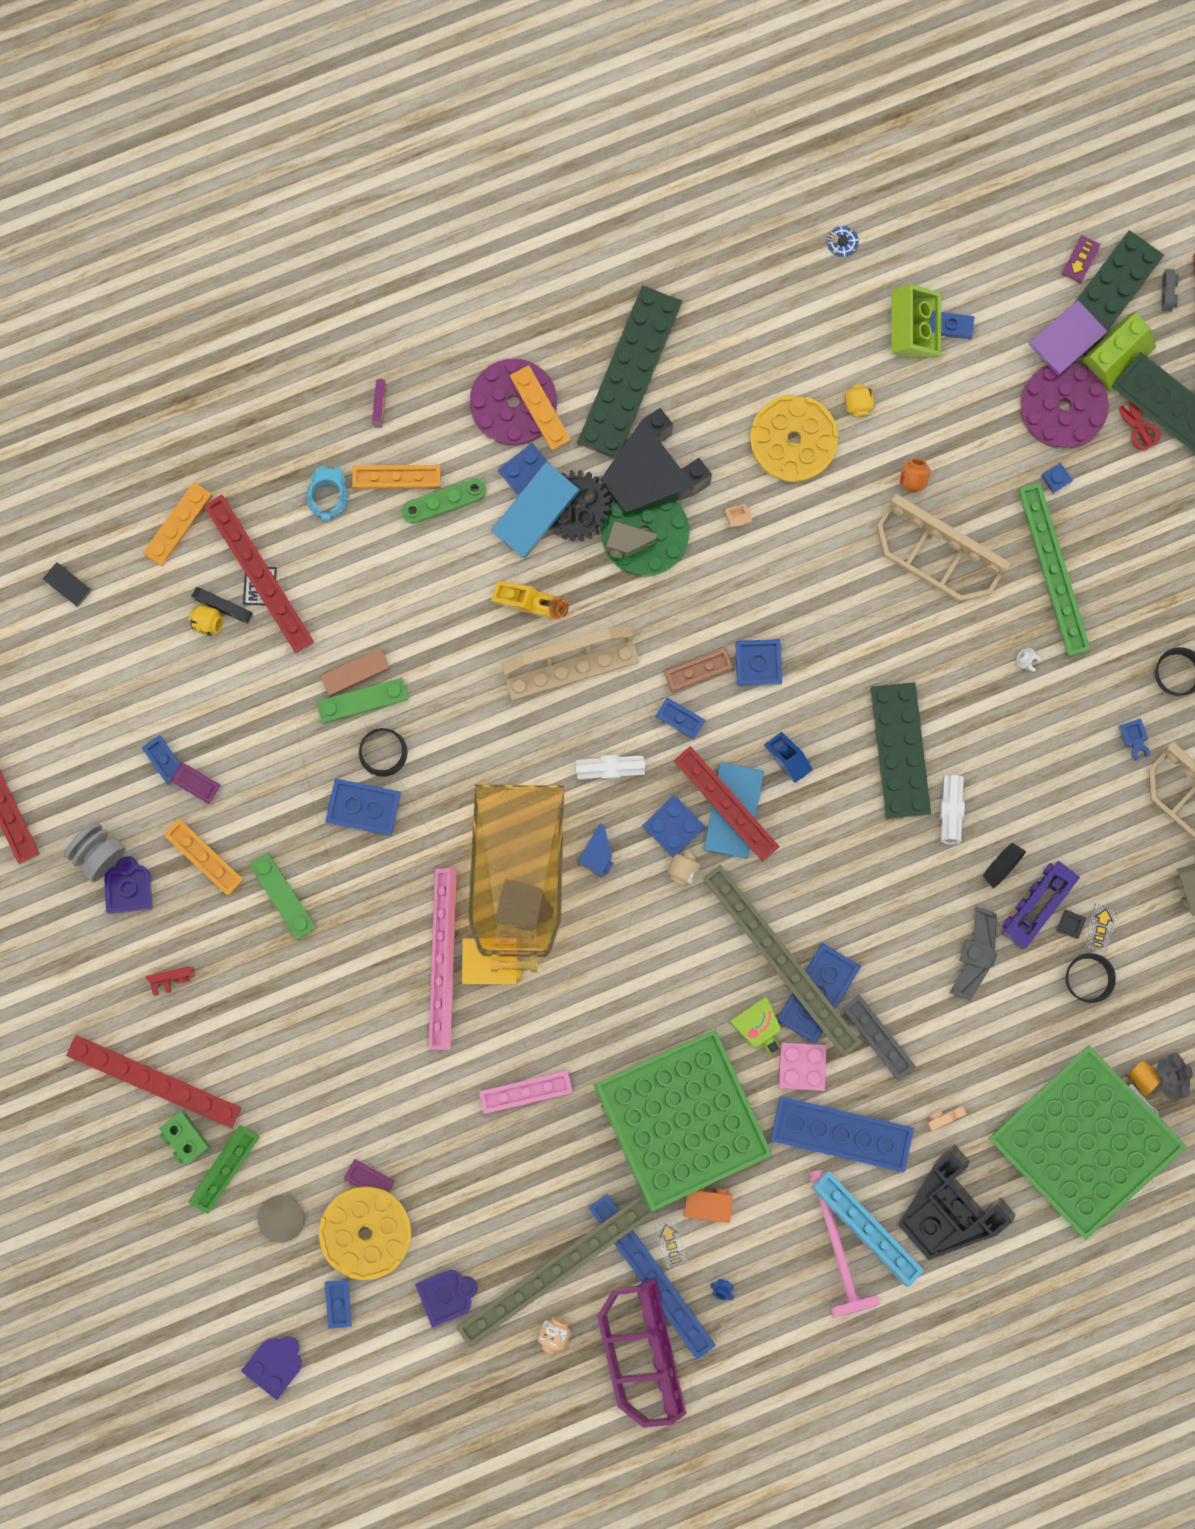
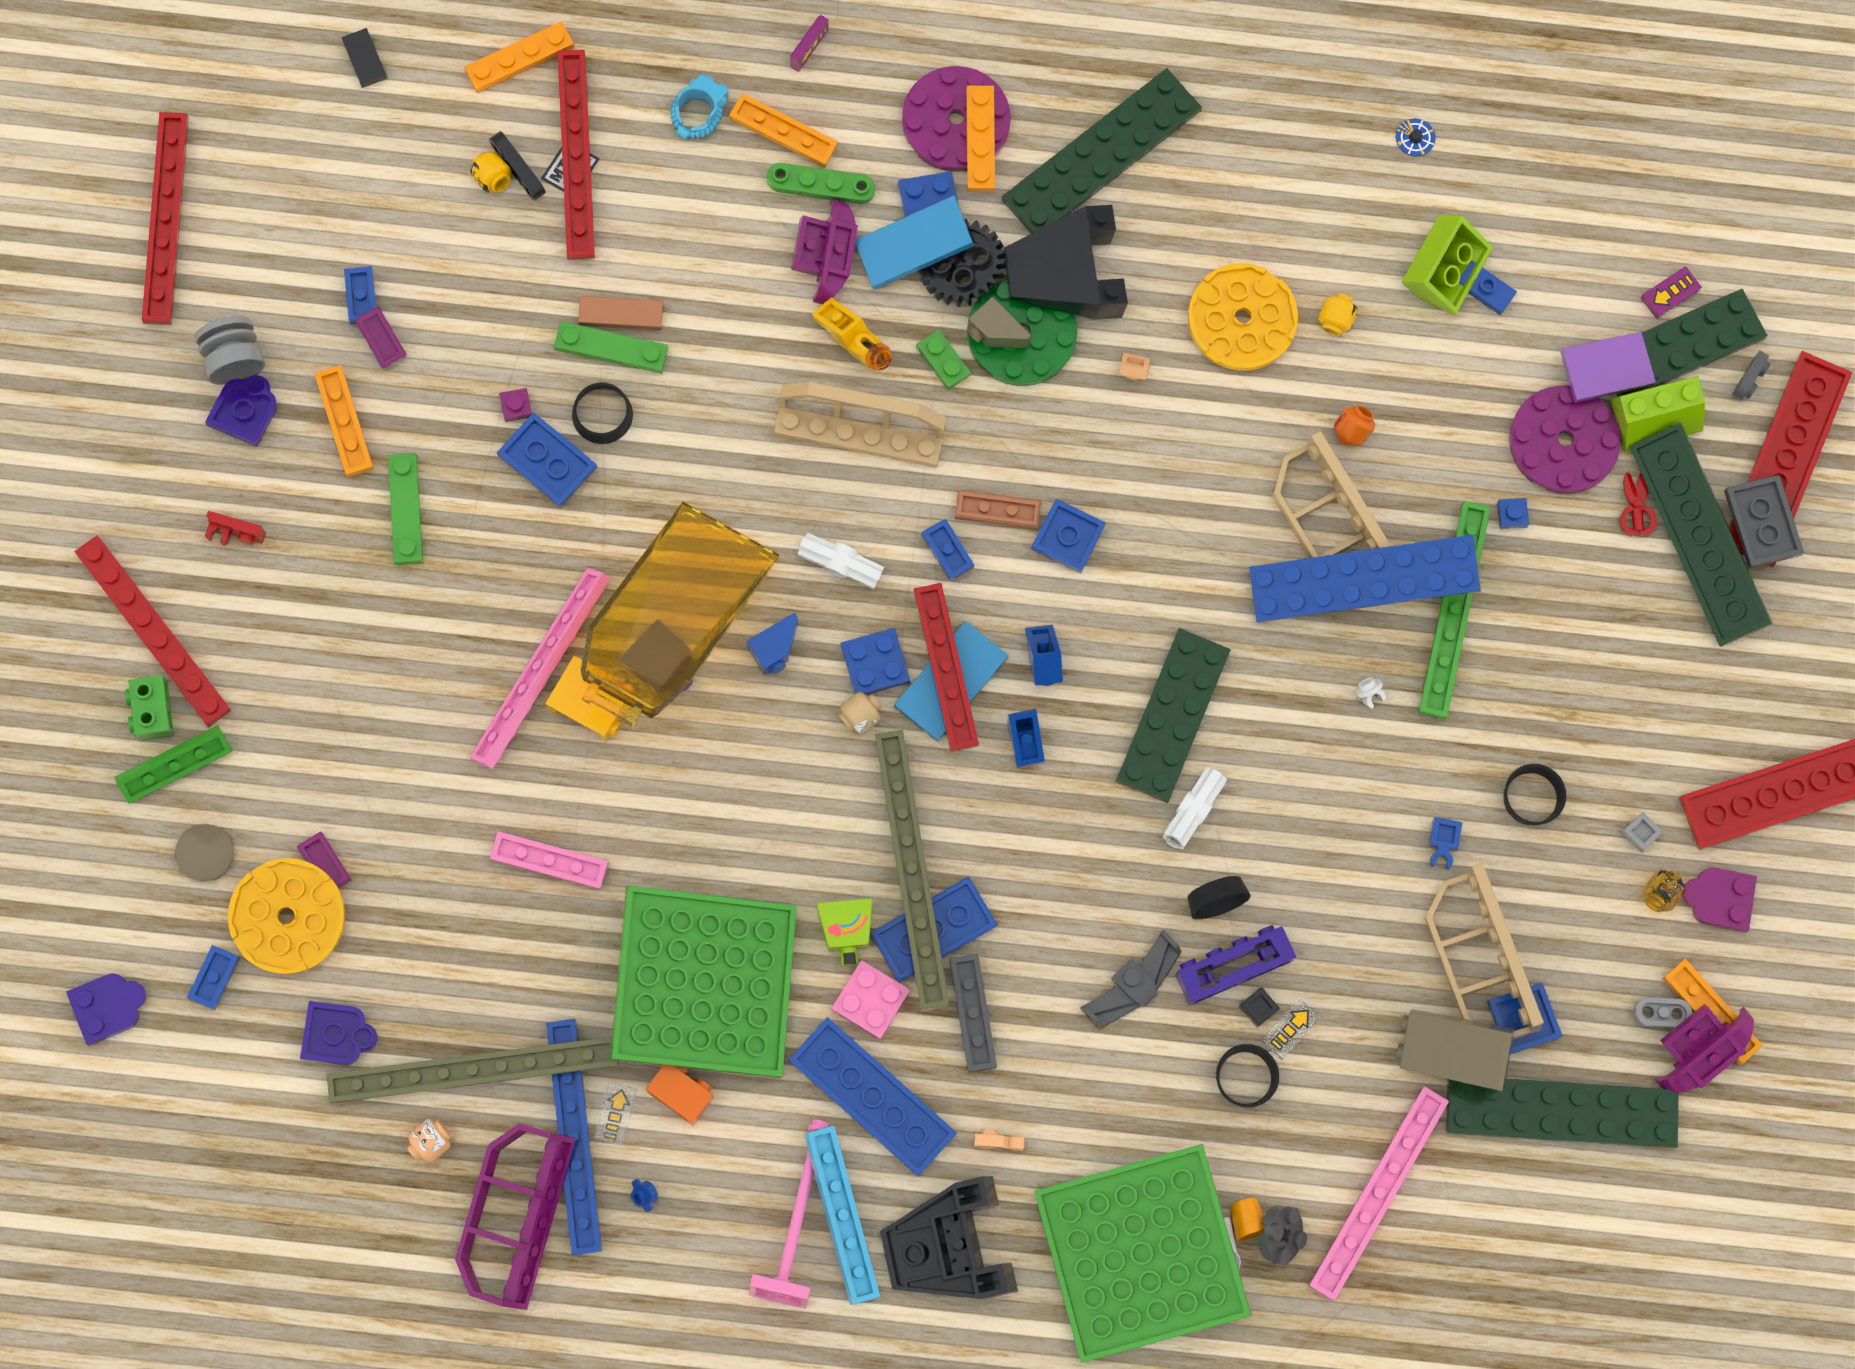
camera: 20 degrees right, 5 degrees down
(318, 779) = (515, 404): none -> magenta plate
(475, 547) = (826, 249): none -> magenta plate
(601, 582) = (943, 359): none -> bright green plate
(809, 824) = (1025, 737): none -> blue slope
(984, 583) = (1365, 578): none -> blue plate

